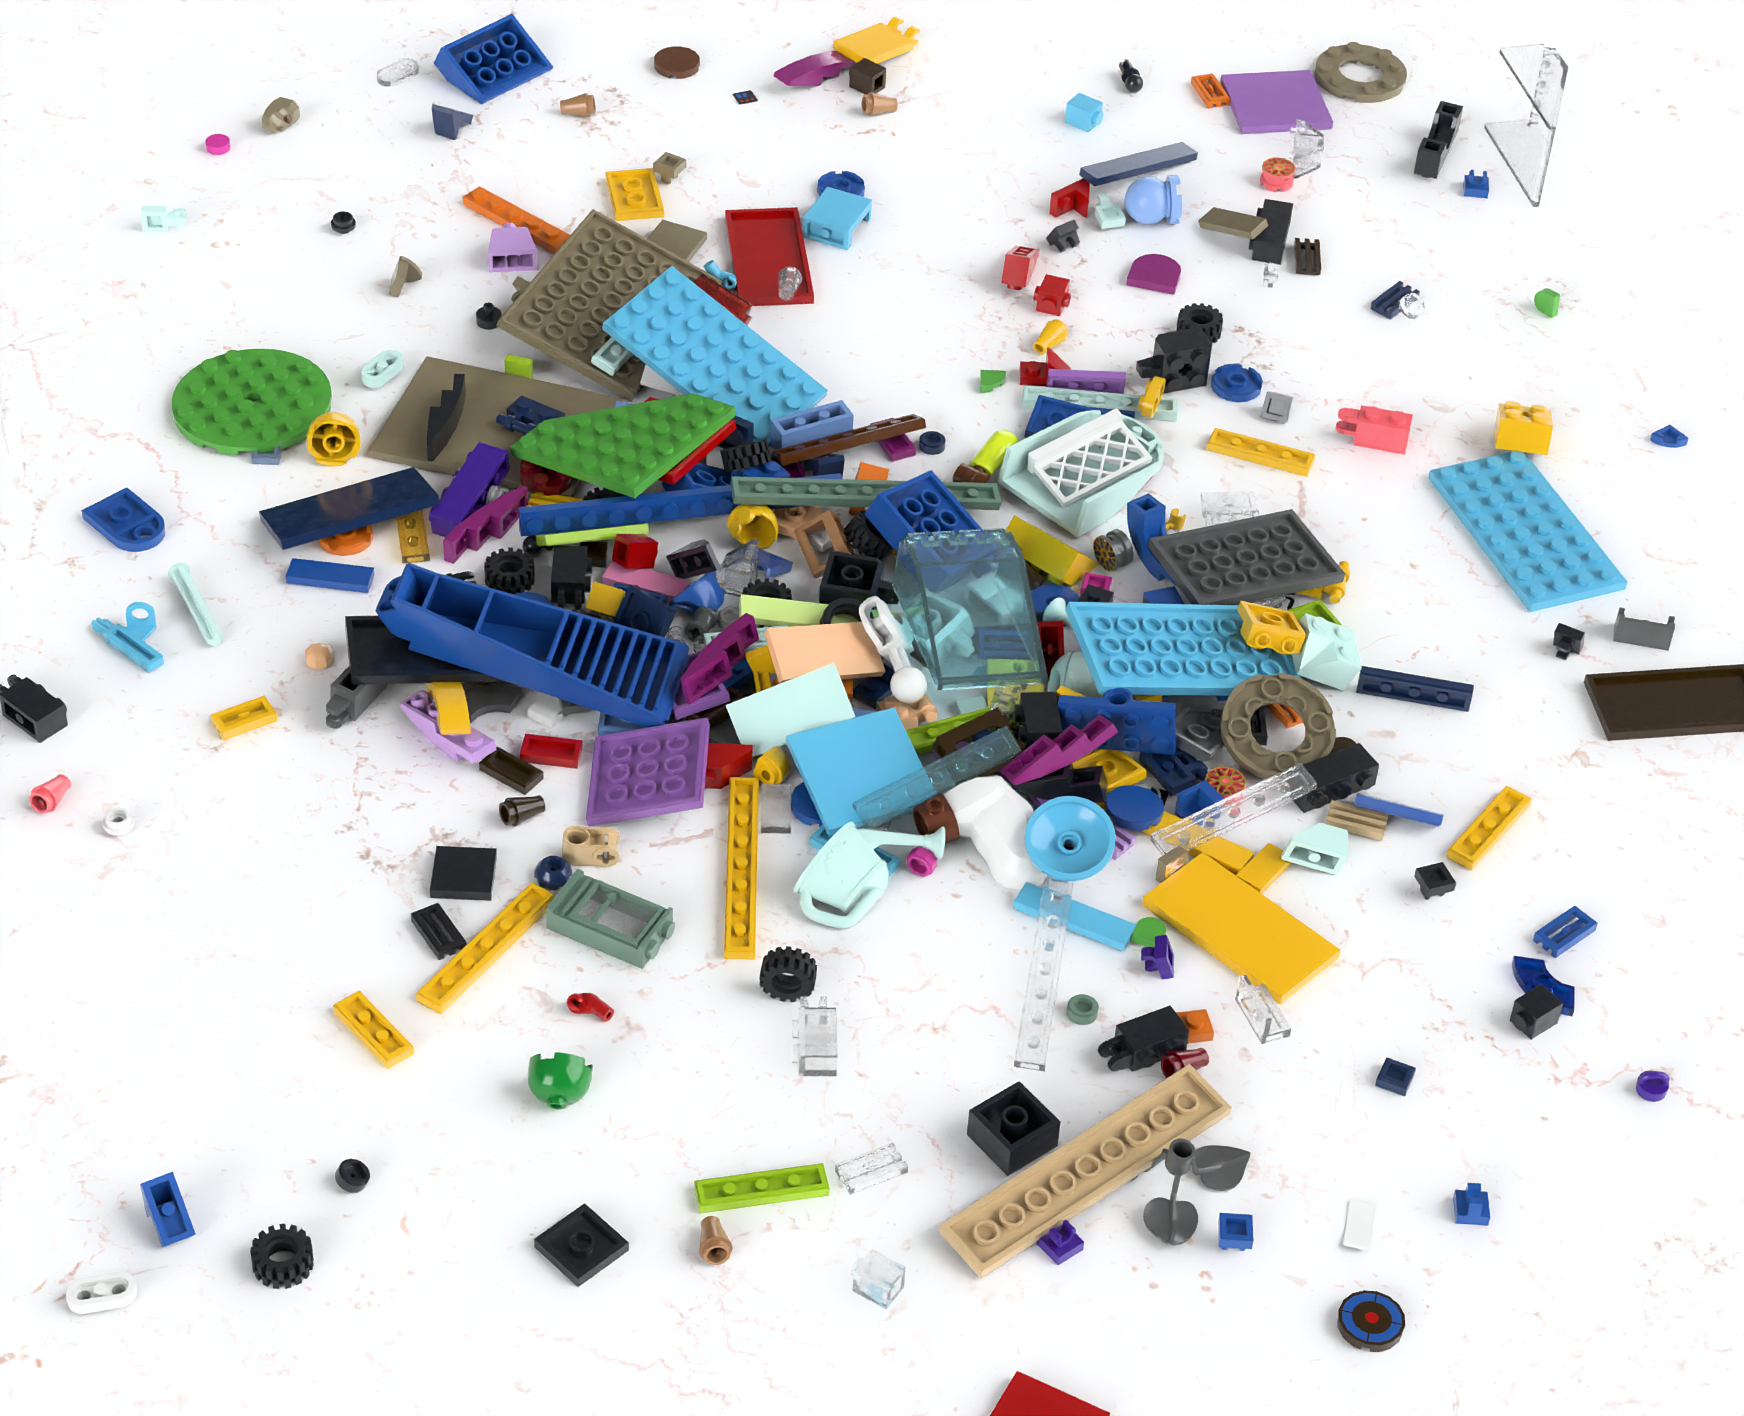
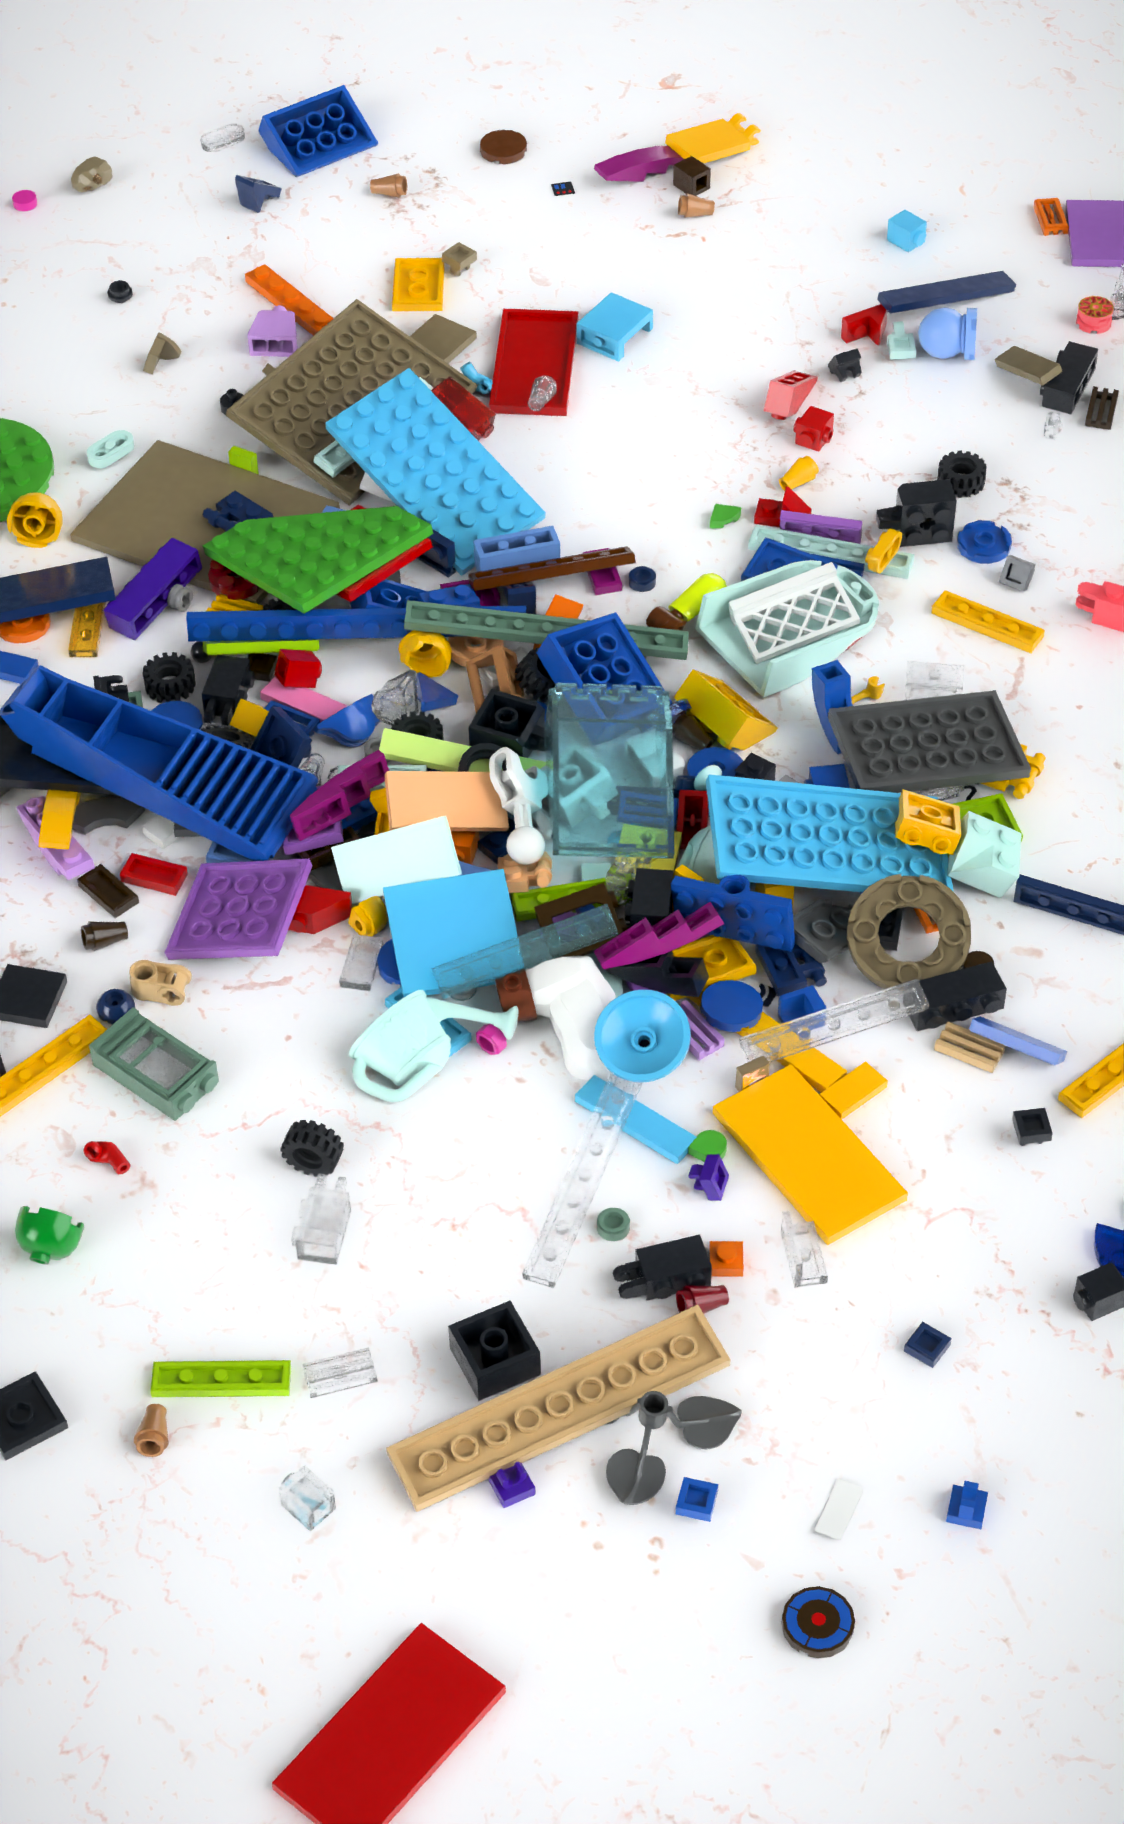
camera: 15 degrees right, 5 degrees up
(445, 419) = (151, 509): black slope -> none
(488, 521) = (158, 623): magenta slope -> none
(693, 560) = (353, 683): black slope -> none
(703, 621) = (344, 753): dark grey bush -> none
(741, 869) = (306, 1024): yellow tile -> none
(745, 455) = (437, 577): black tyre -> none
(845, 182) = (635, 289): blue tile -> none
(1096, 580) = (769, 750): dark pink tile -> none
(1113, 550) = (793, 716): dark grey wheel -> none
(1130, 76) = (969, 195): black axle -> none
(1155, 273) = (931, 413): magenta tile -> none
(1226, 780) = (837, 989): wheel -> none
(1319, 848) = (914, 1074): light aqua slope -> none

